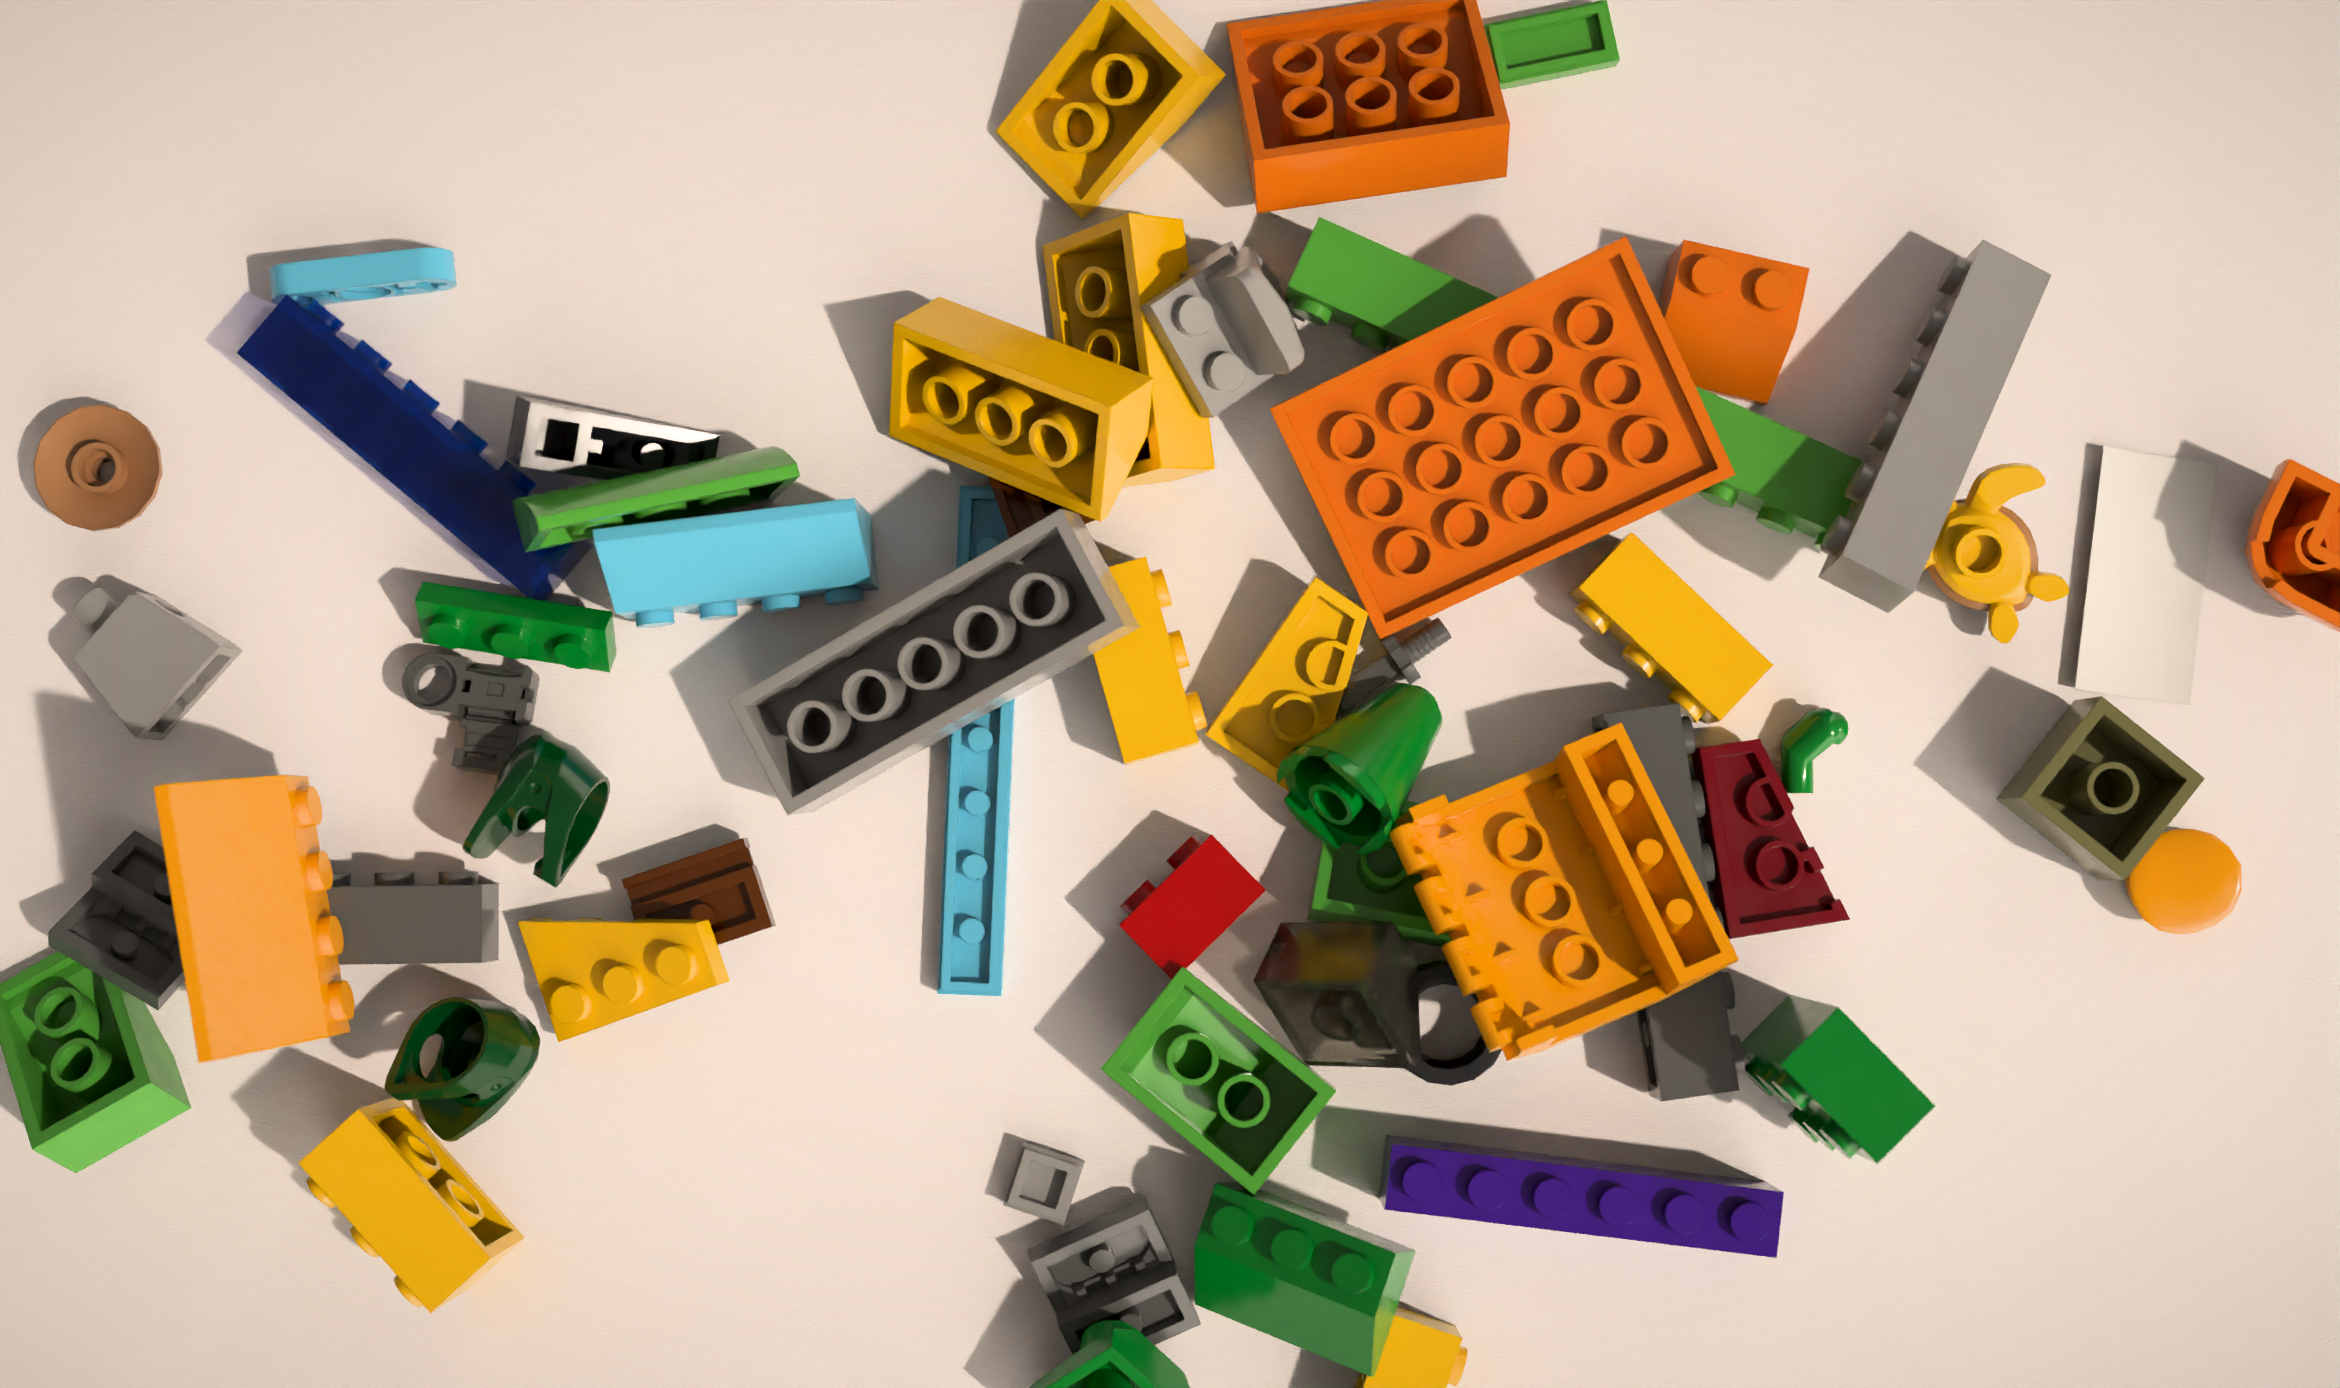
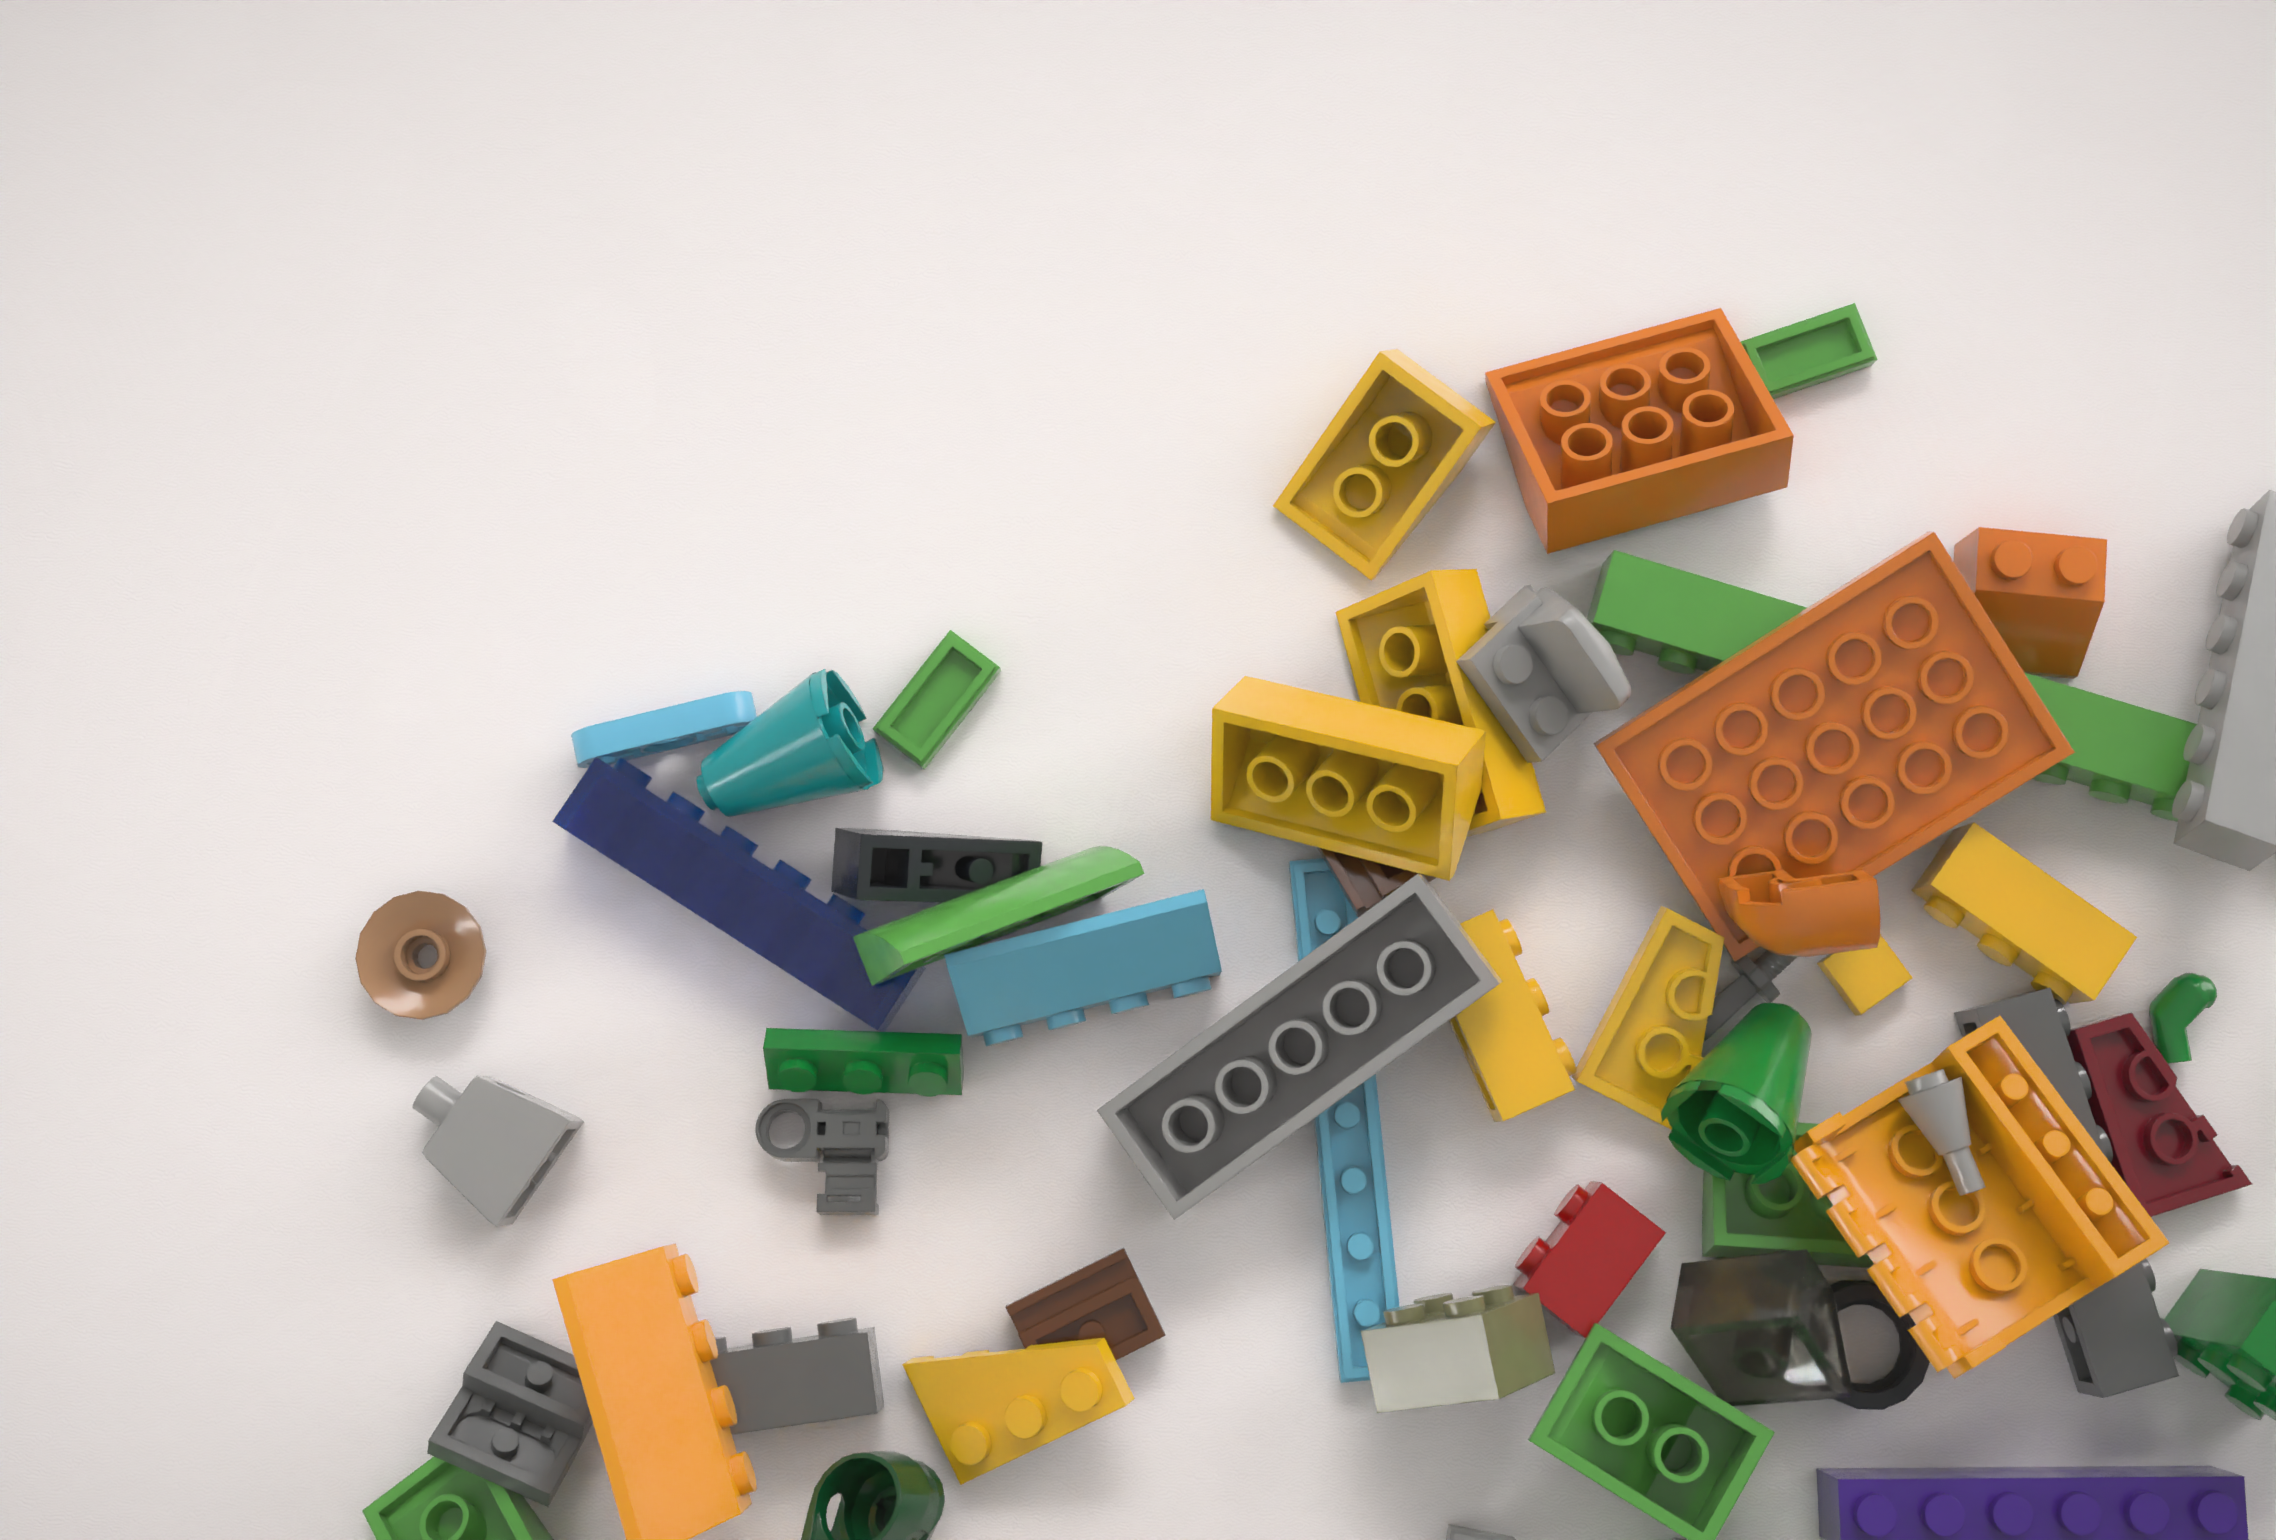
camera: 10 degrees left, 5 degrees down
(486, 314) = (794, 752): none -> teal cone
(539, 783) = (911, 1217): dark green helmet -> none
(636, 282) = (937, 699): none -> bright green tile
(1043, 973) = (1457, 1349): none -> brick
(1441, 598) = (1805, 913): none -> orange brick
(1508, 665) = (1865, 975): none -> yellow tile
(1547, 811) = (1942, 1117): none -> light grey cone

